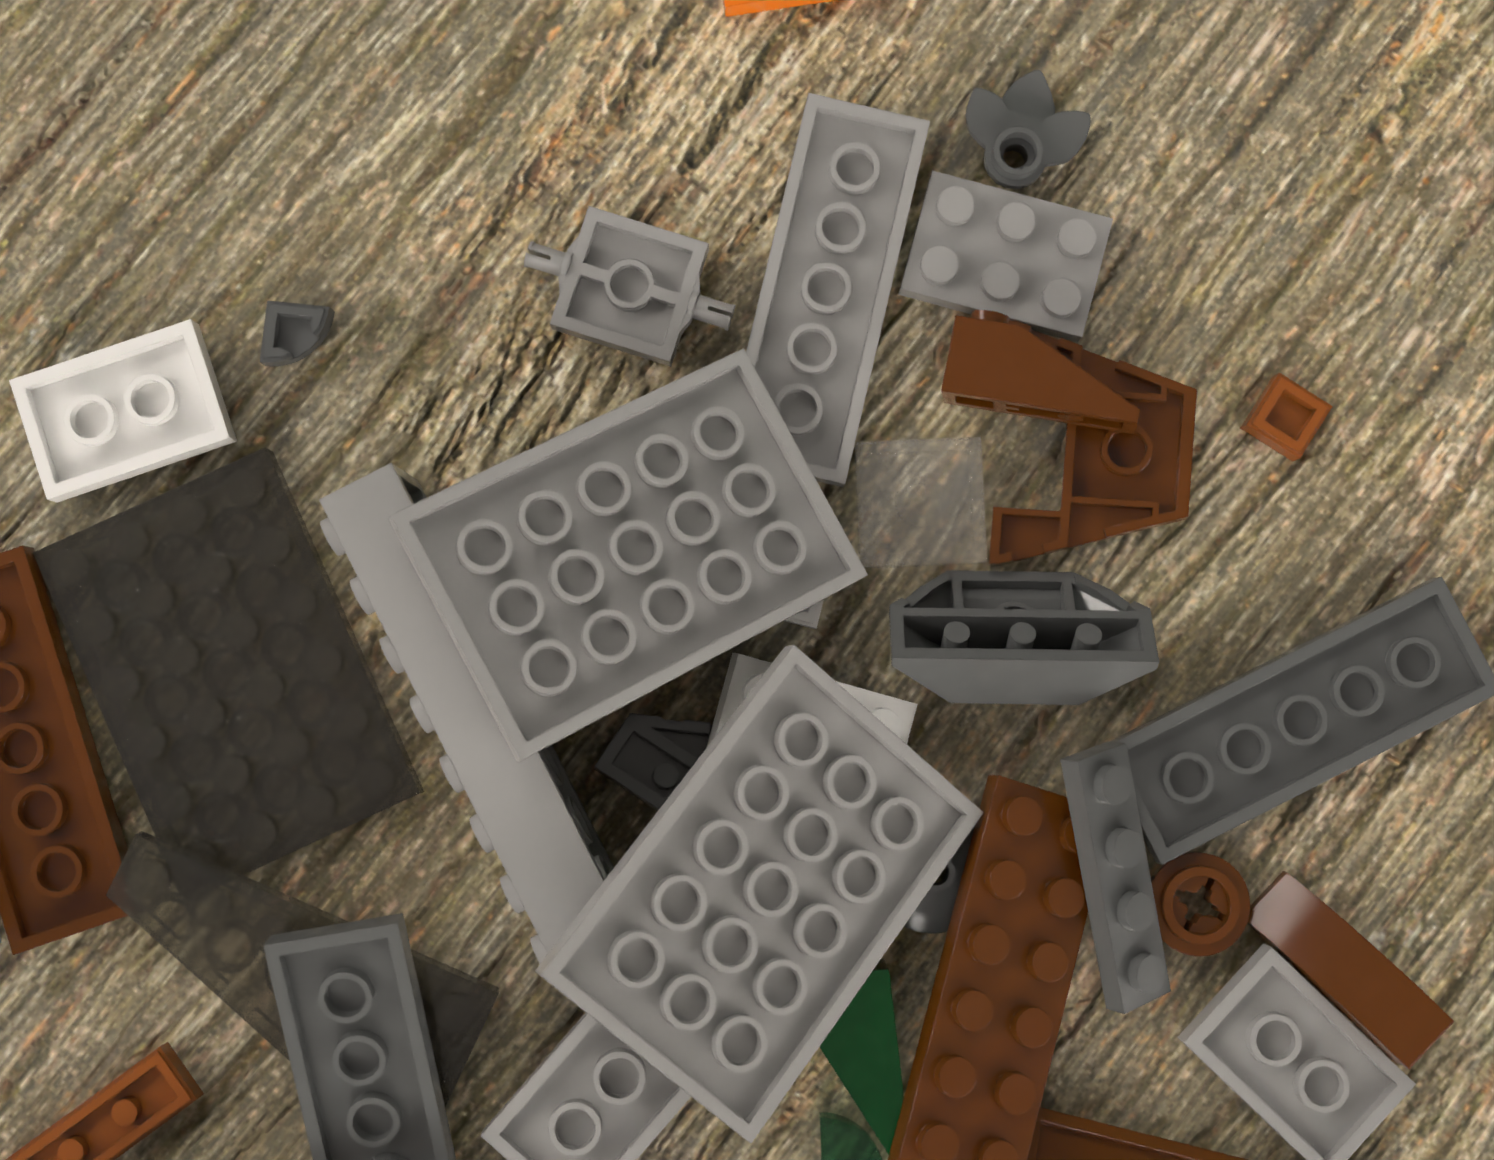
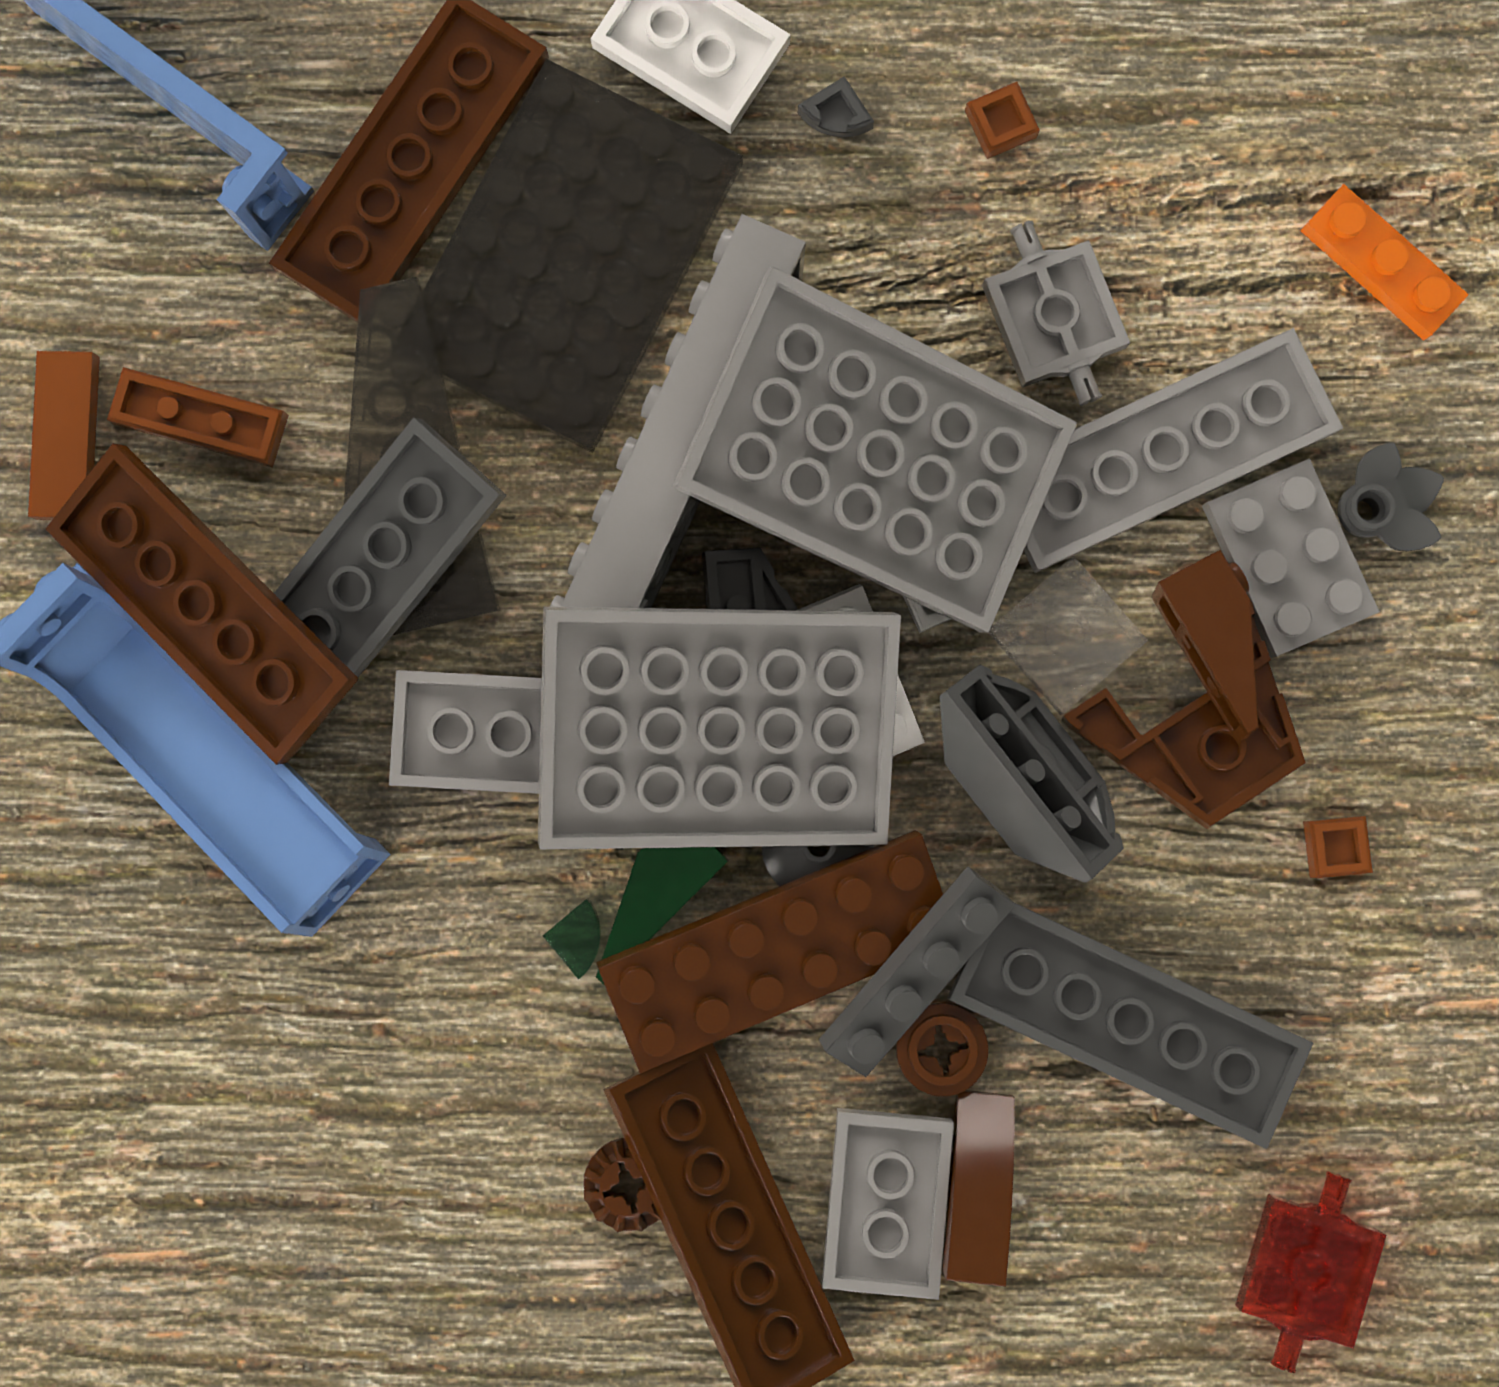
camera: 55 degrees right, 0 degrees up
(419, 194) = (1002, 120): none -> dark orange tile

